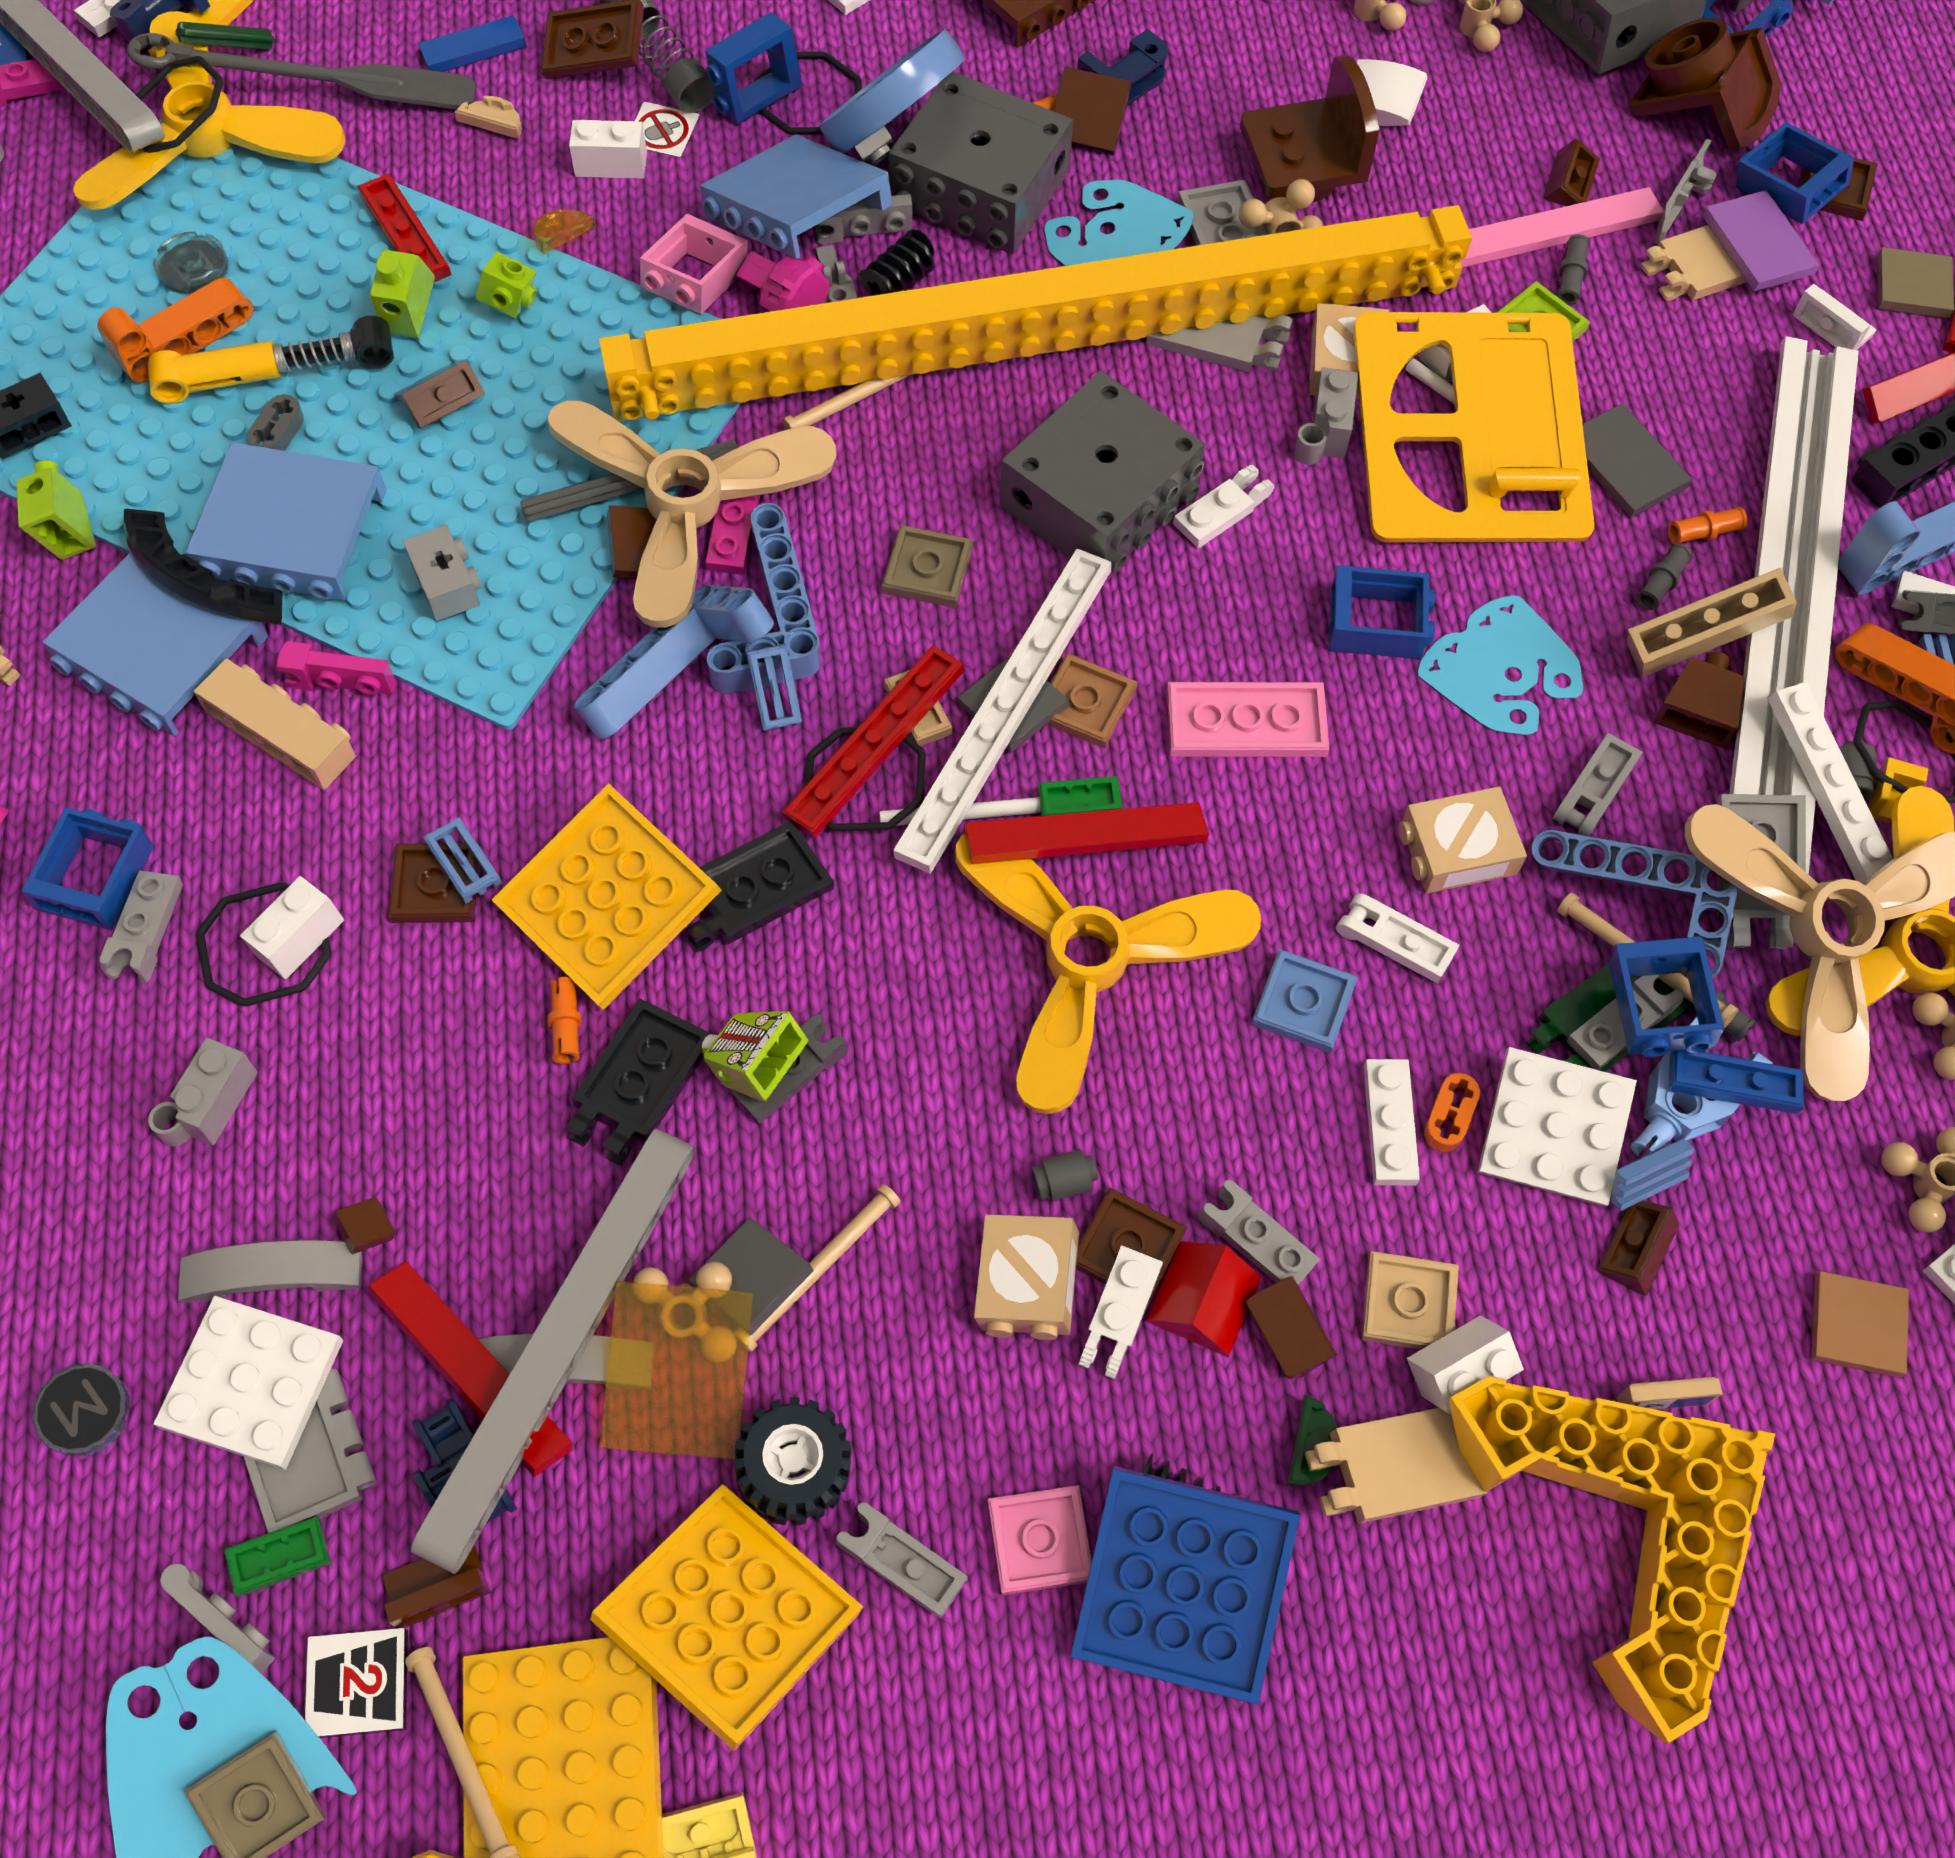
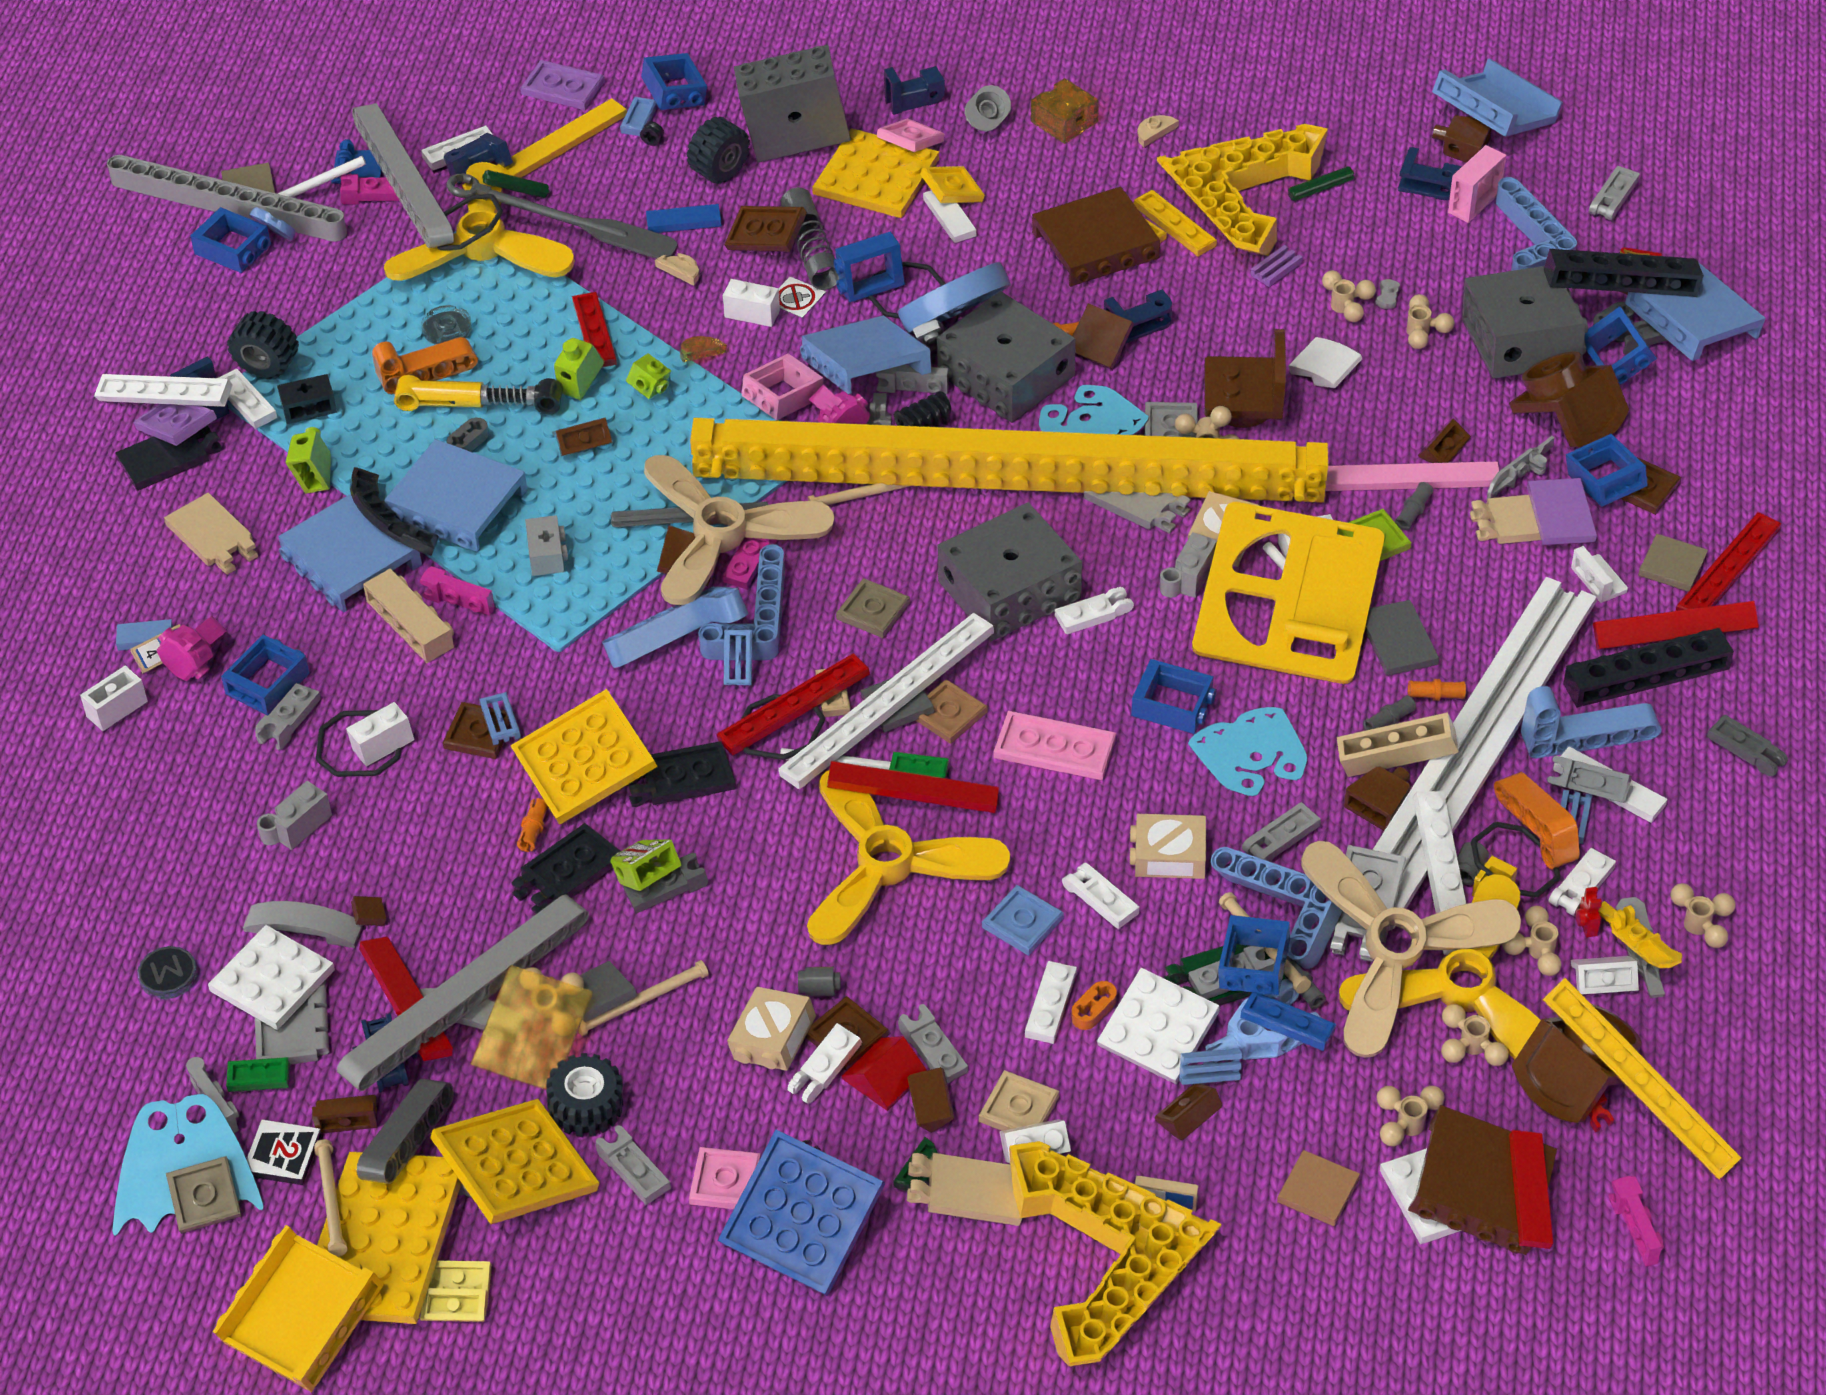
camera: 20 degrees right, 15 degrees down
(543, 1613) = (405, 1131): none -> dark grey beam

